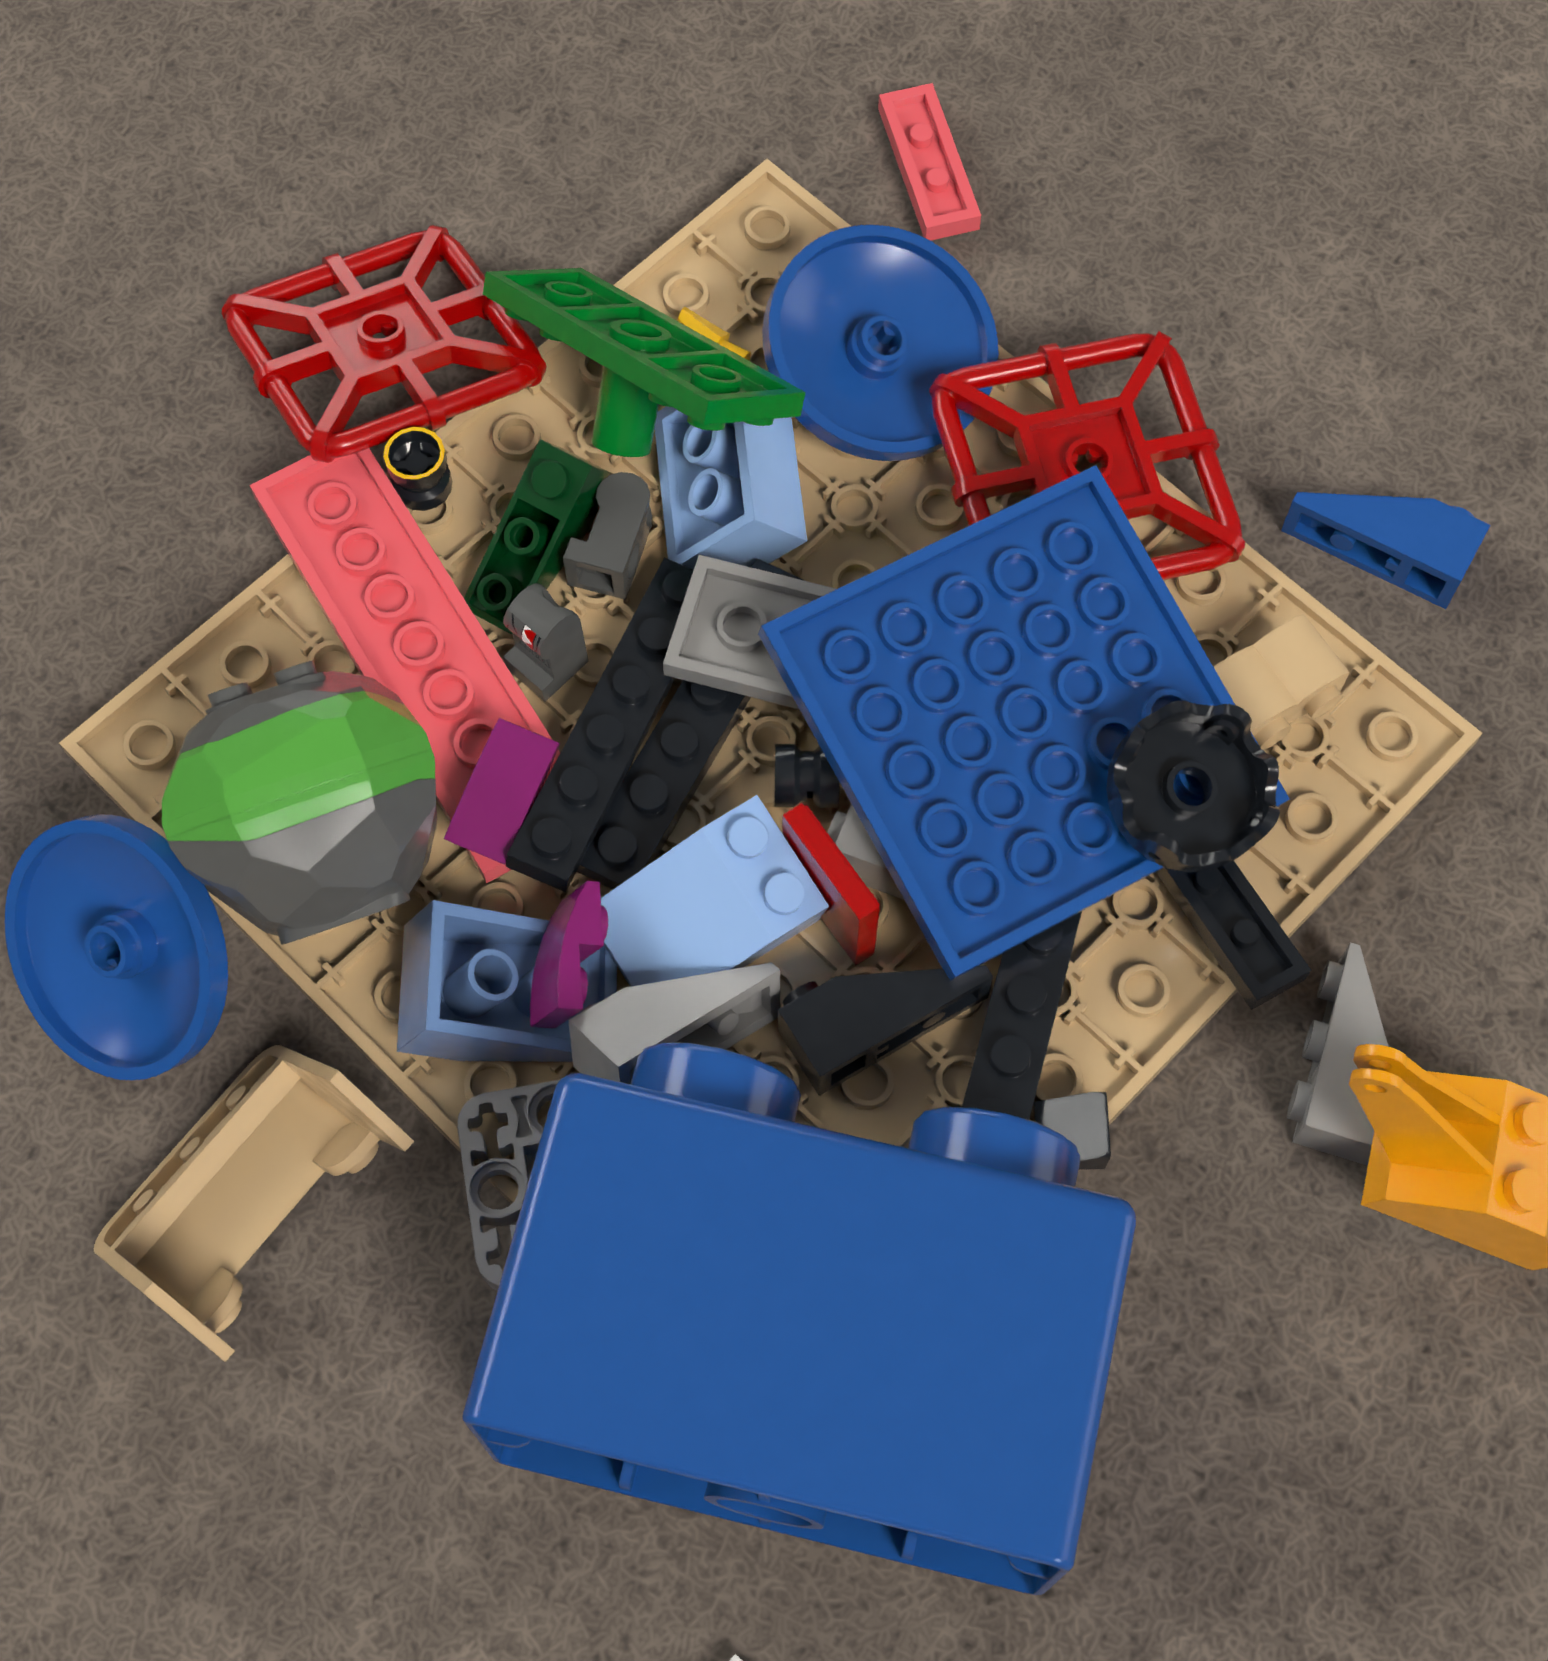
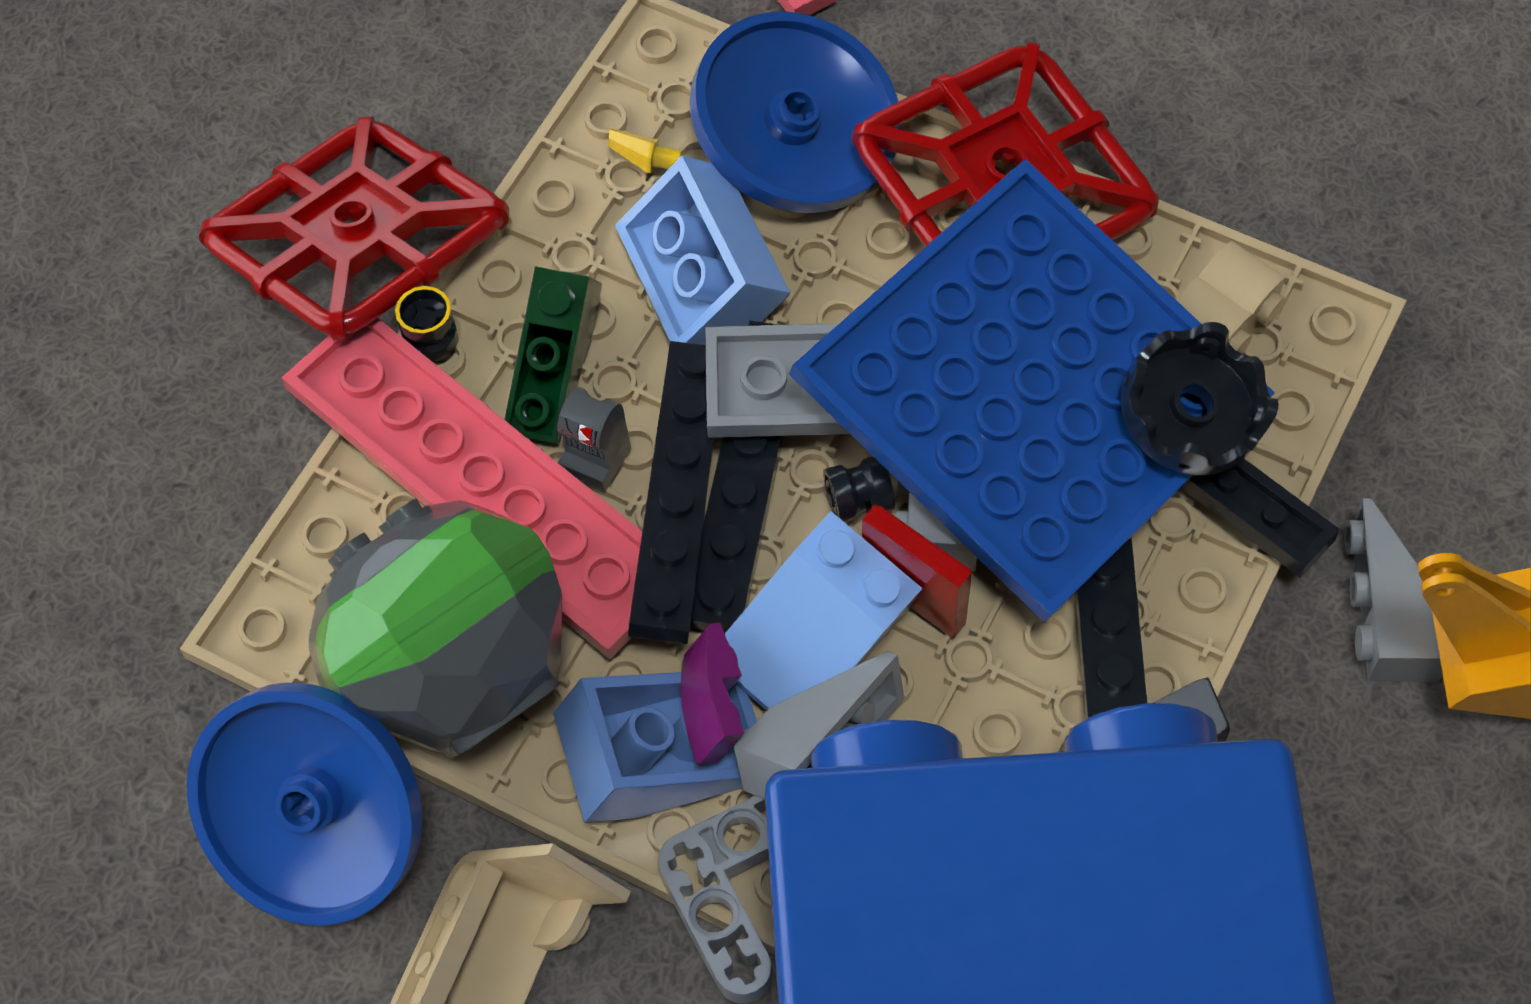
camera: 15 degrees left, 5 degrees down
(501, 790) = (604, 572): magenta slope -> none
(617, 538) = (622, 351): dark grey leg -> none
(643, 358) = (598, 176): green plate -> none
(866, 1017) = (985, 673): black slope -> none
(1399, 539) = (1281, 162): blue slope -> none

